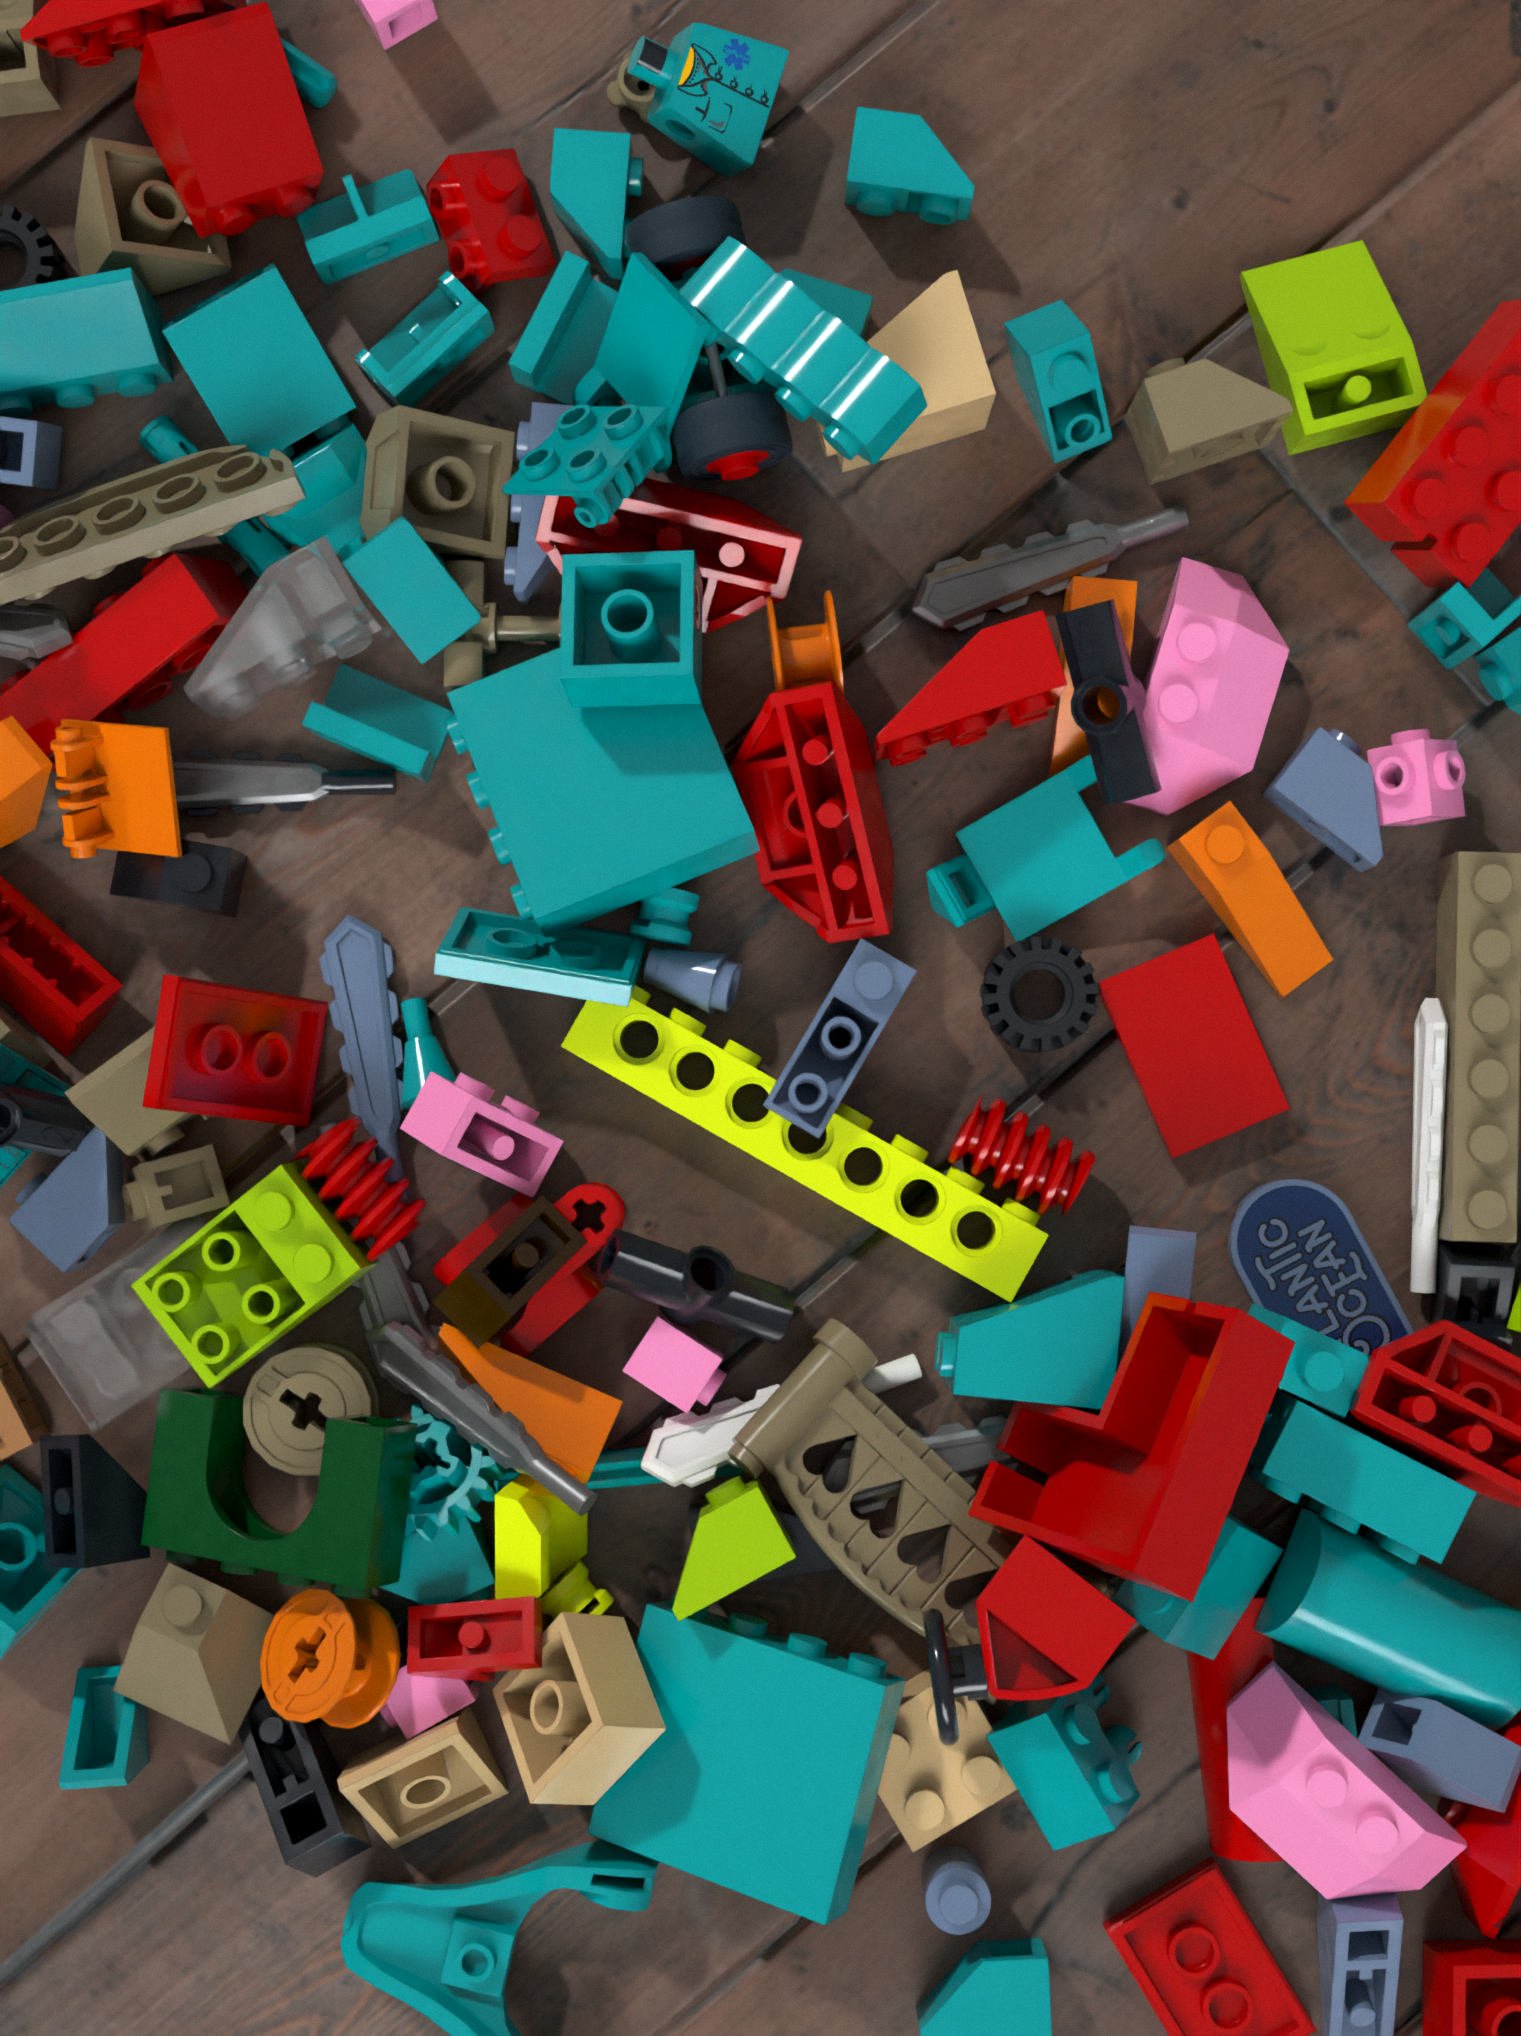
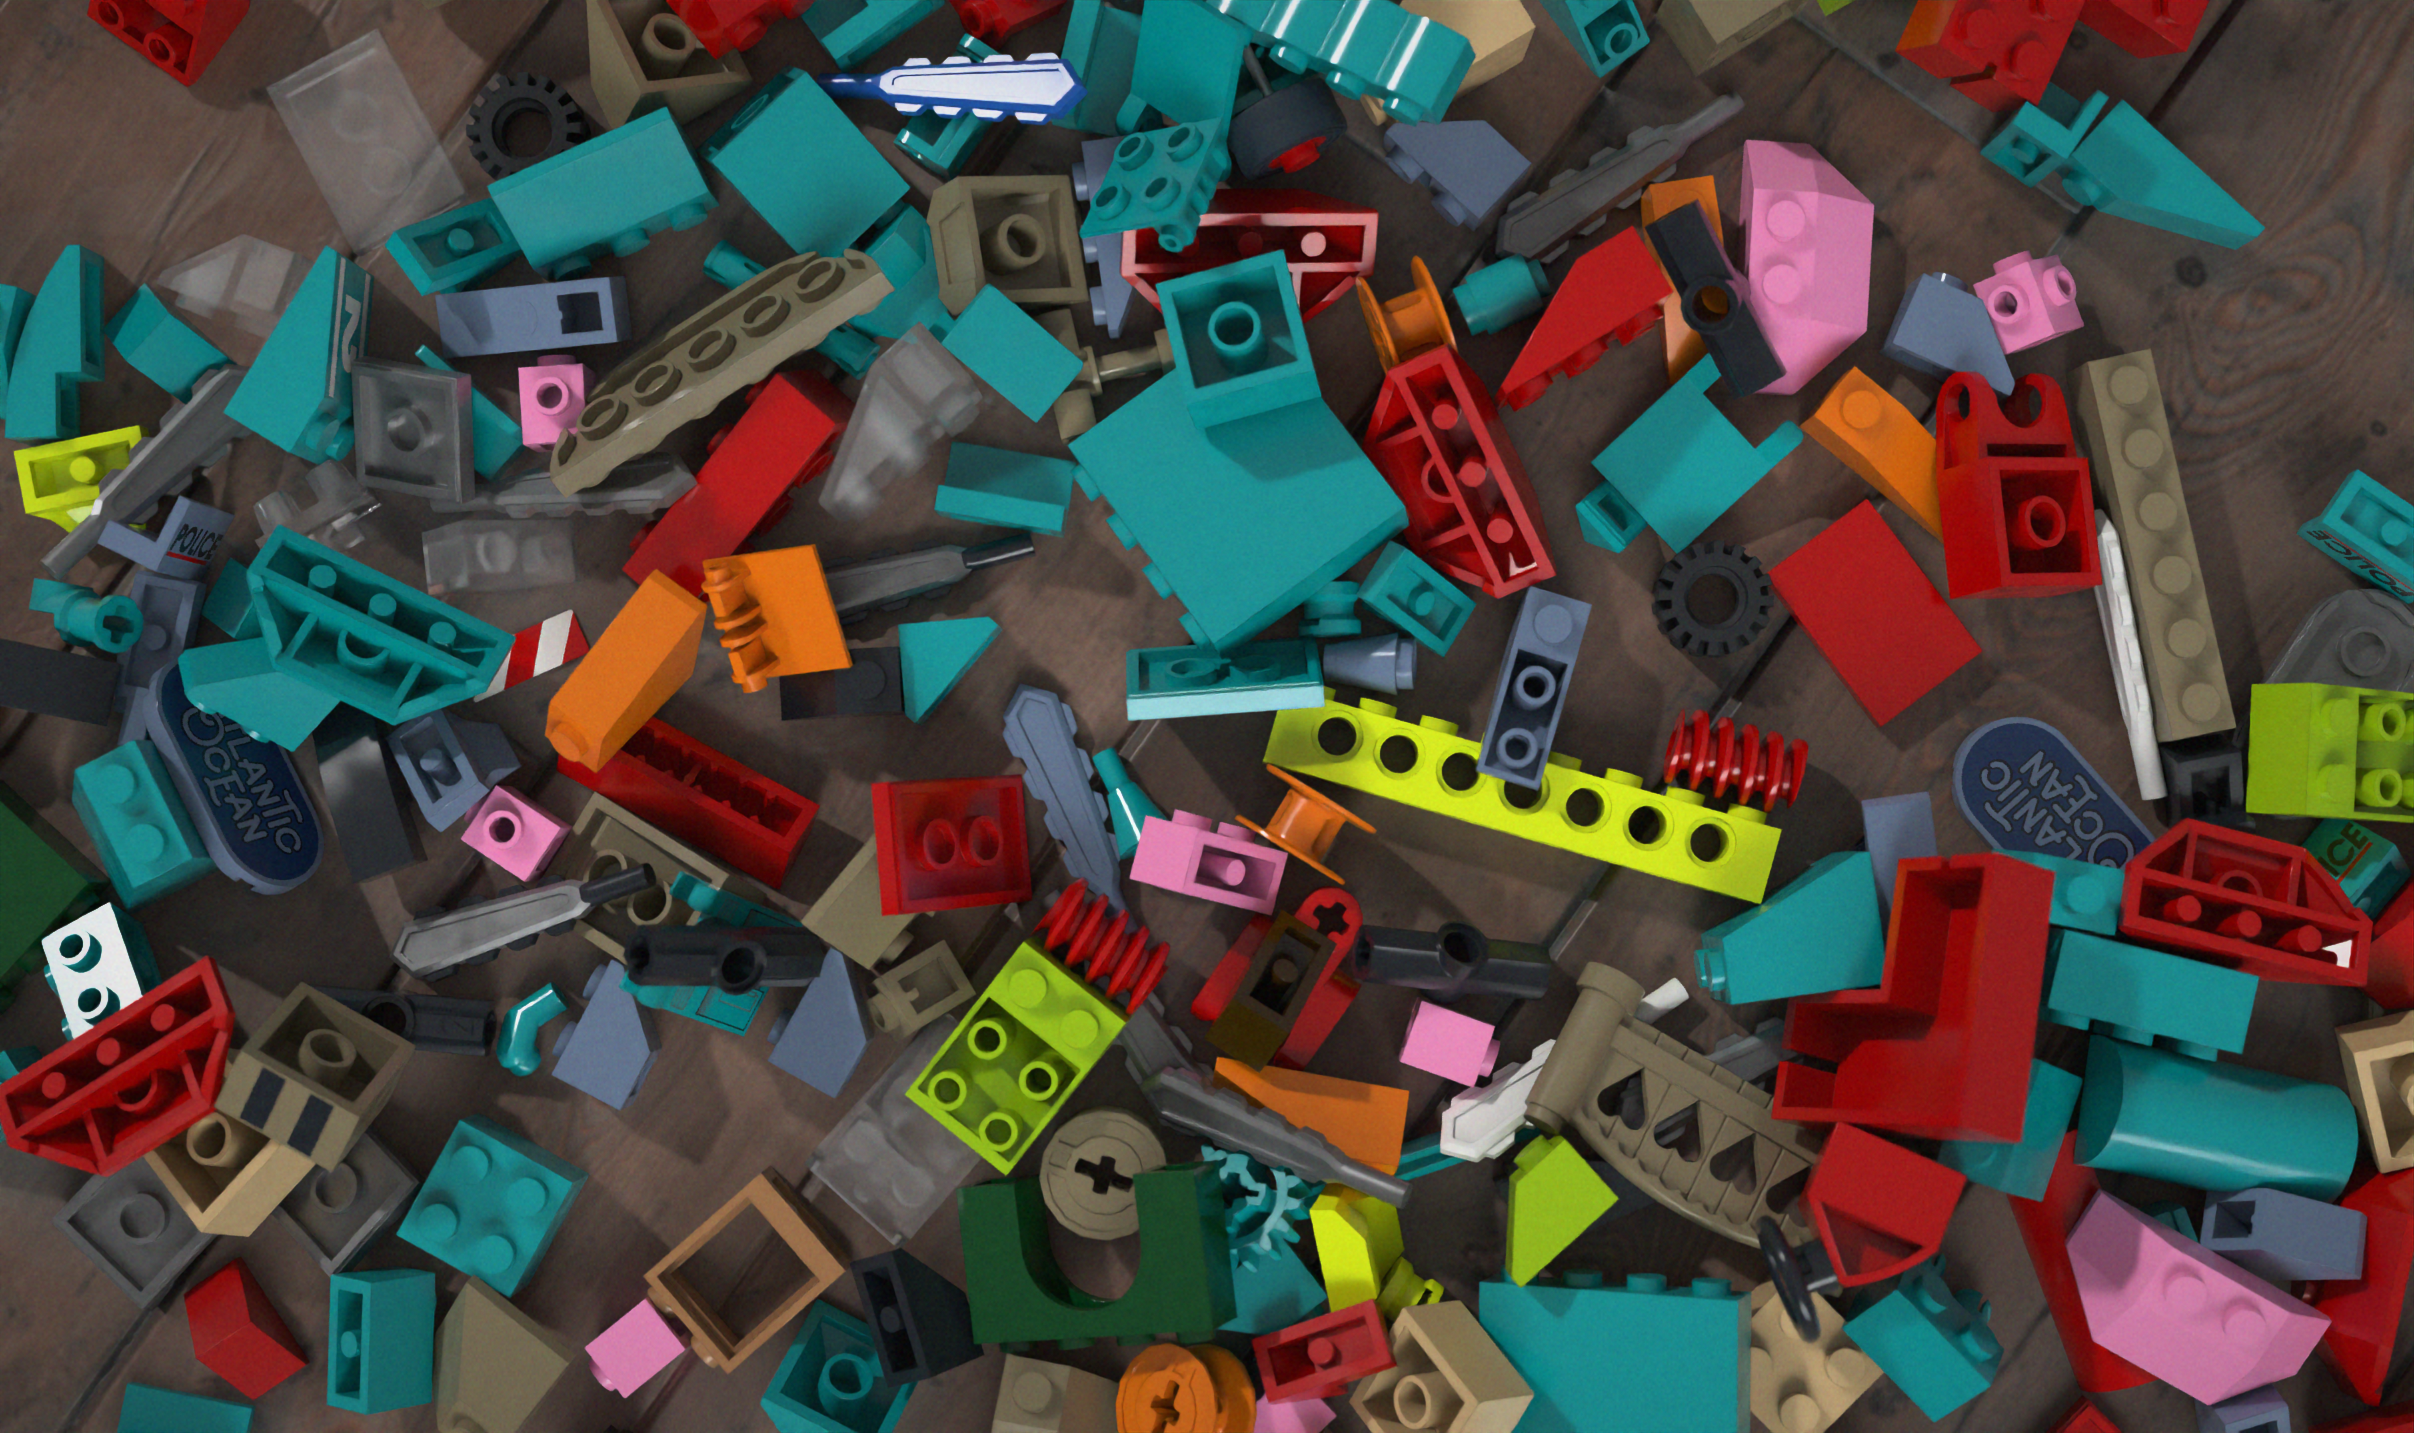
camera: 10 degrees left, 0 degrees up
(271, 871) = (937, 658): none -> teal slope
(455, 329) = (992, 90): none -> sword
(585, 1118) = (1306, 823): none -> orange piece
(749, 924) = (1415, 599): none -> teal slope
(897, 511) = (1459, 163): none -> sand blue slope
(906, 649) = (1502, 294): none -> teal brick
(1355, 962) = (2013, 493): none -> red brick

